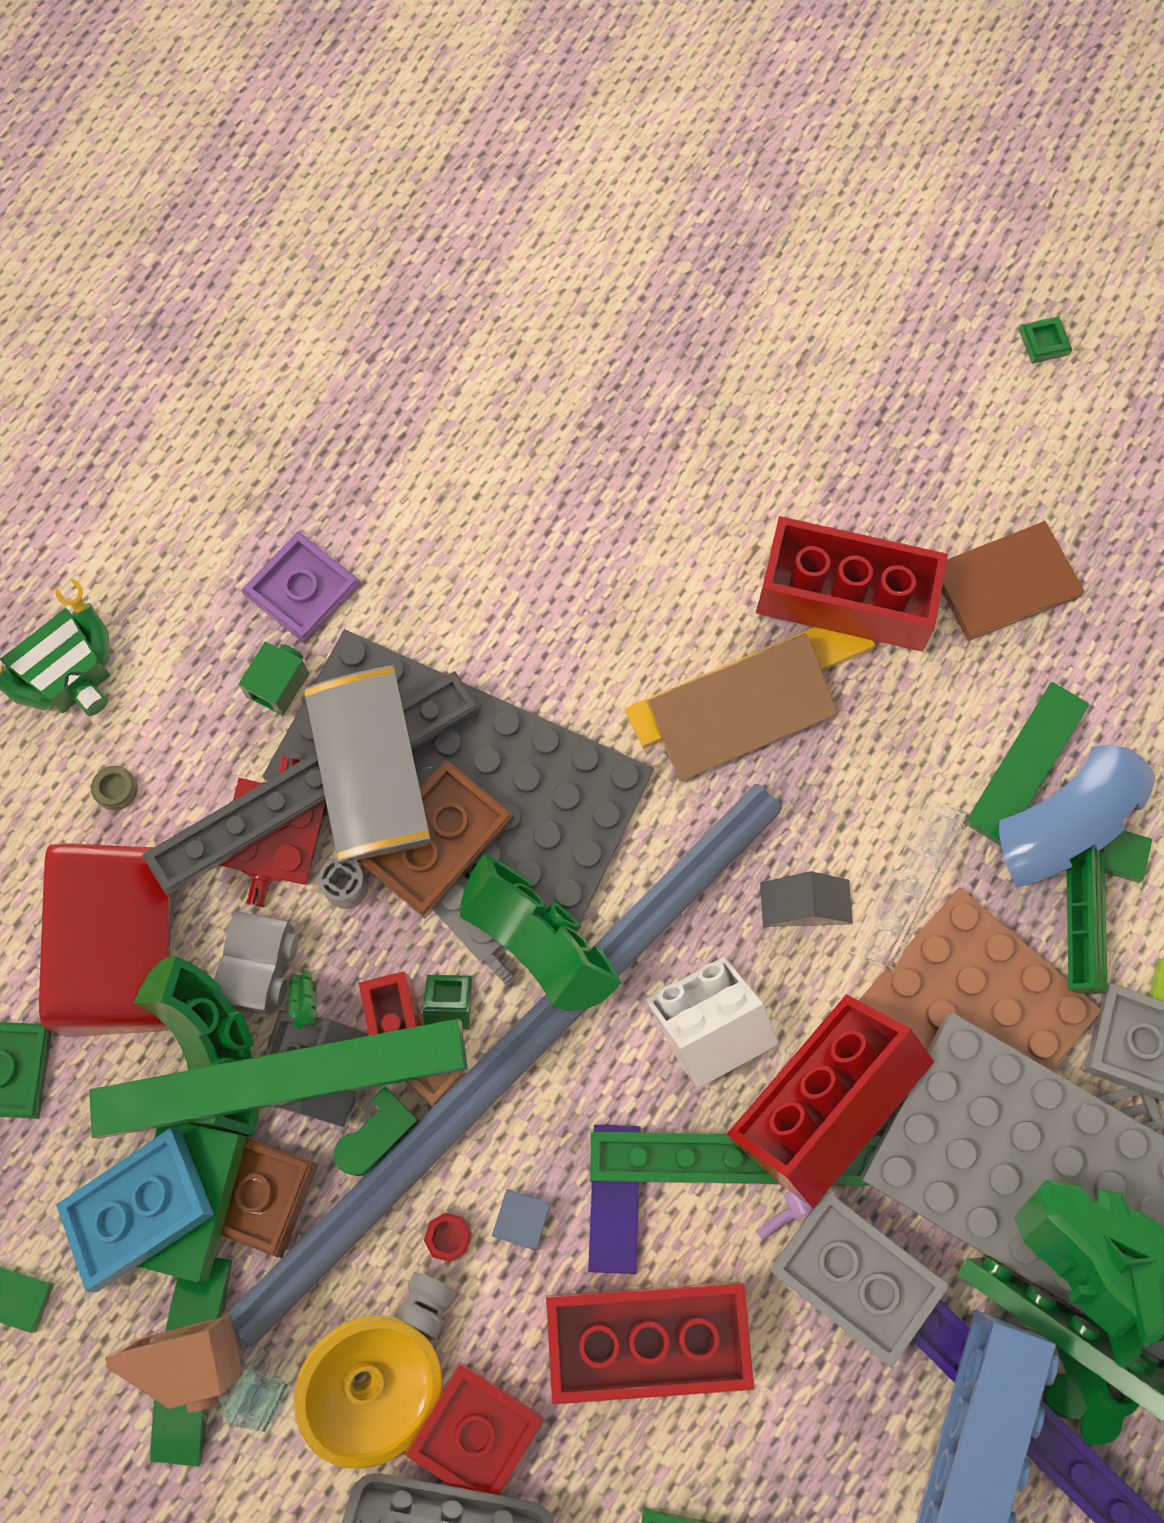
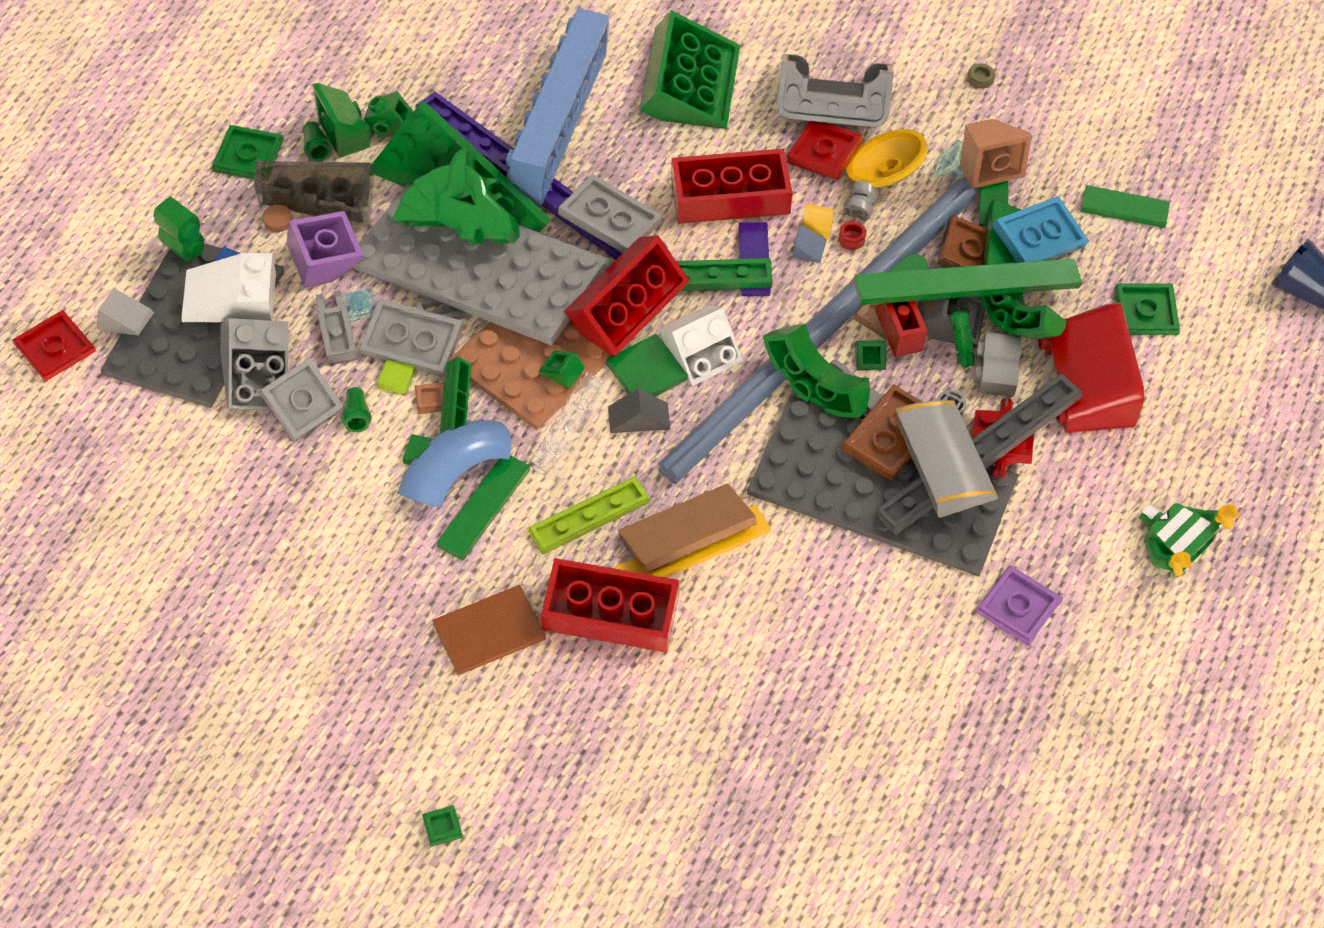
camera: 175 degrees right, 15 degrees down
(114, 788) = (1119, 467): olive tile -> none
(274, 677) = (1023, 533): green brick -> none
(504, 1263) = (818, 219): none -> yellow slope
(795, 983) = (647, 367): none -> green tile
(877, 743) = (588, 515): none -> lime tile
(928, 973) = (562, 368): none -> green slope
(1125, 948) = (429, 397): none -> nougat tile

